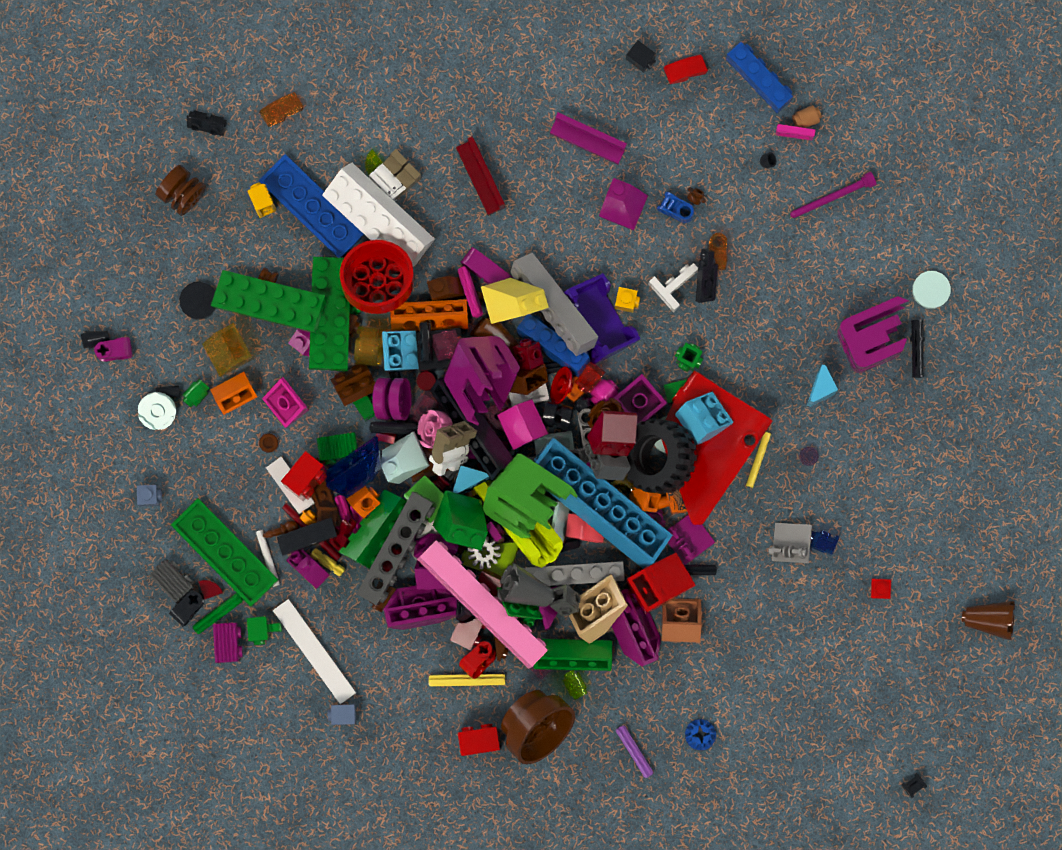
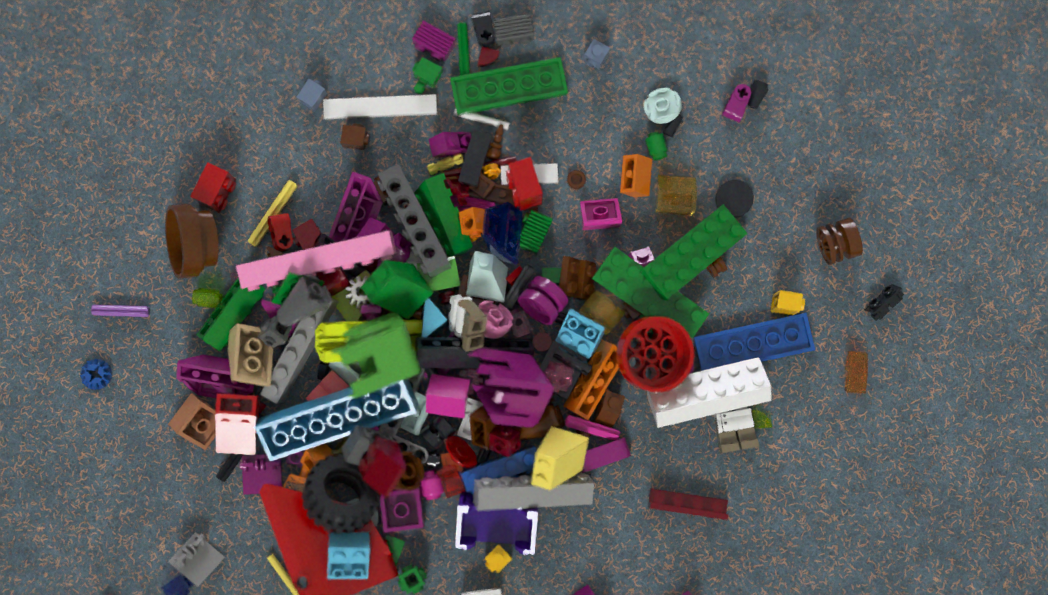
camera: 120 degrees right, 0 degrees up
(354, 653) = (354, 136): none -> reddish brown brick

